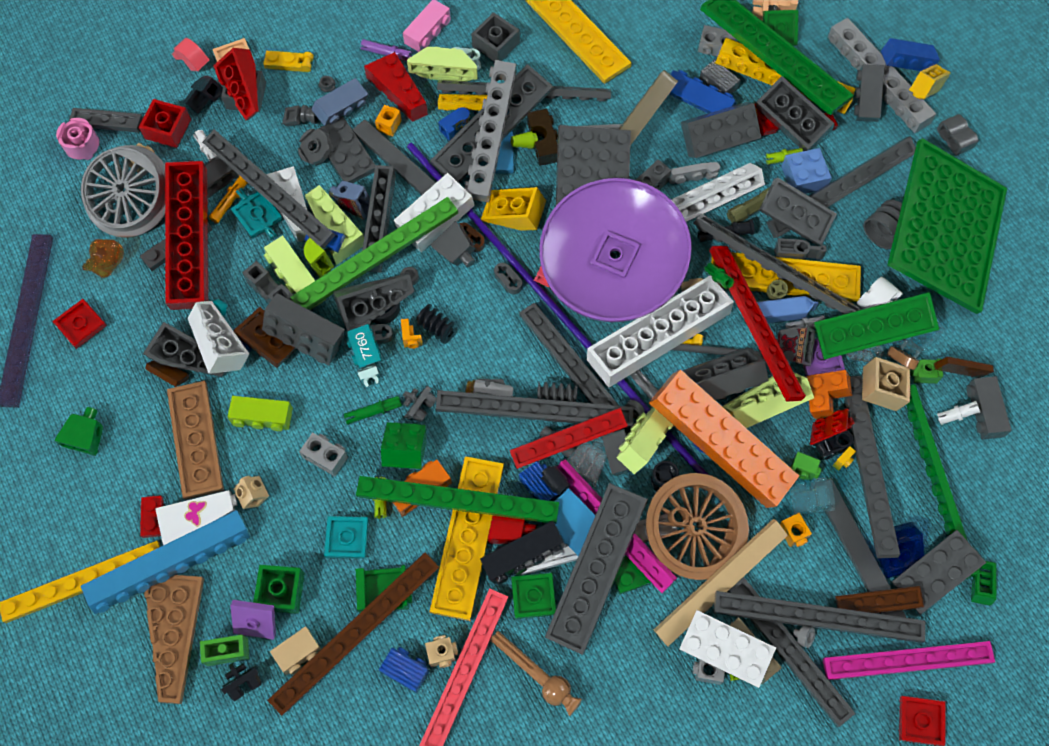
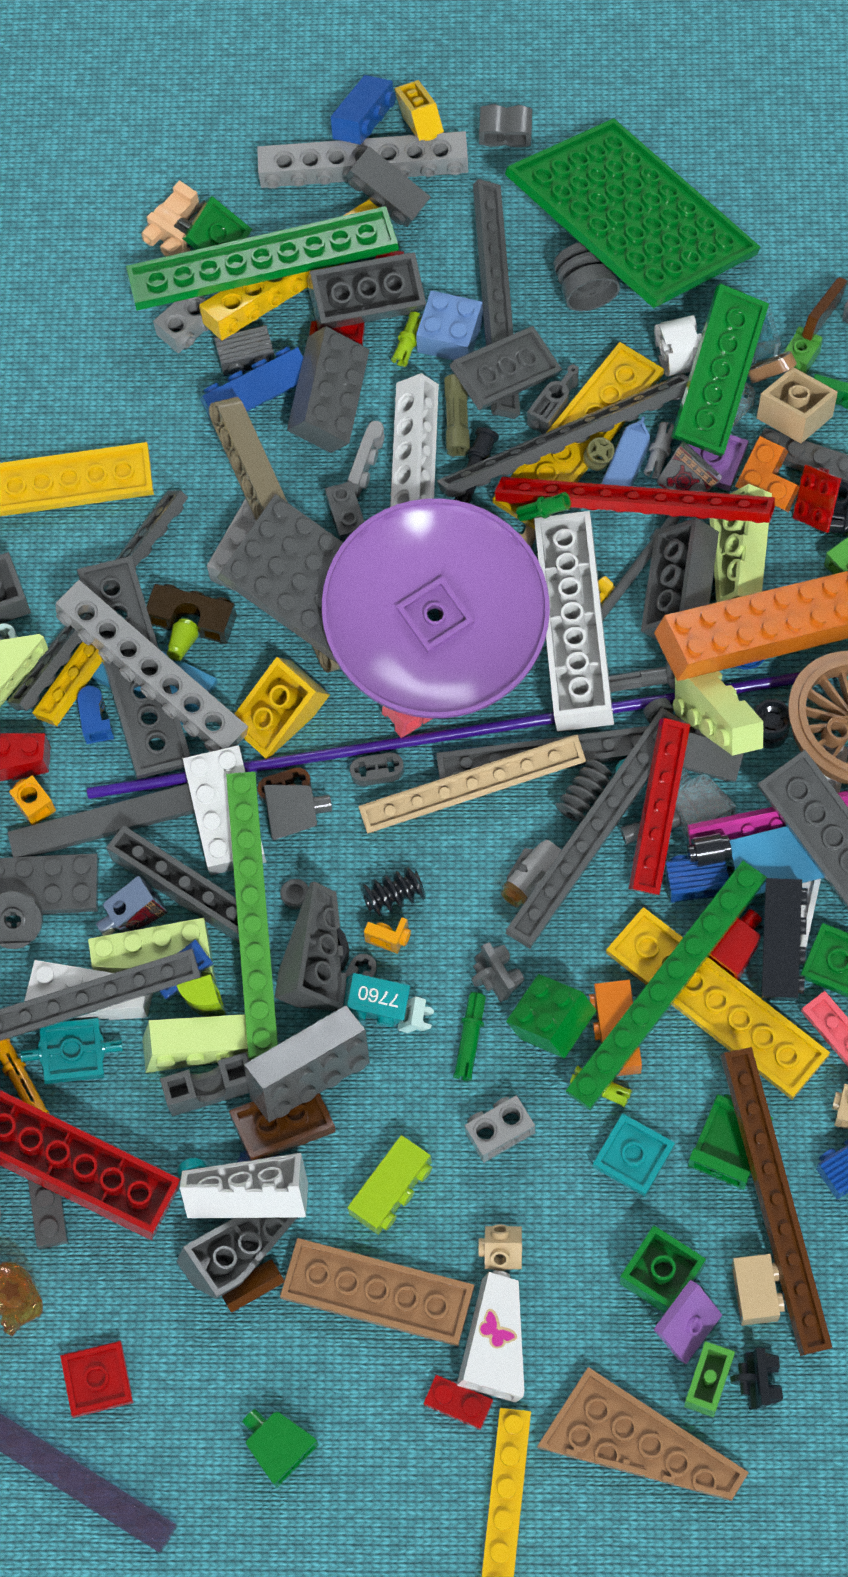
camera: 55 degrees left, 0 degrees up
(164, 562) = (545, 1403): dark azure brick -> none
(527, 332) = (472, 783): none -> tan tile

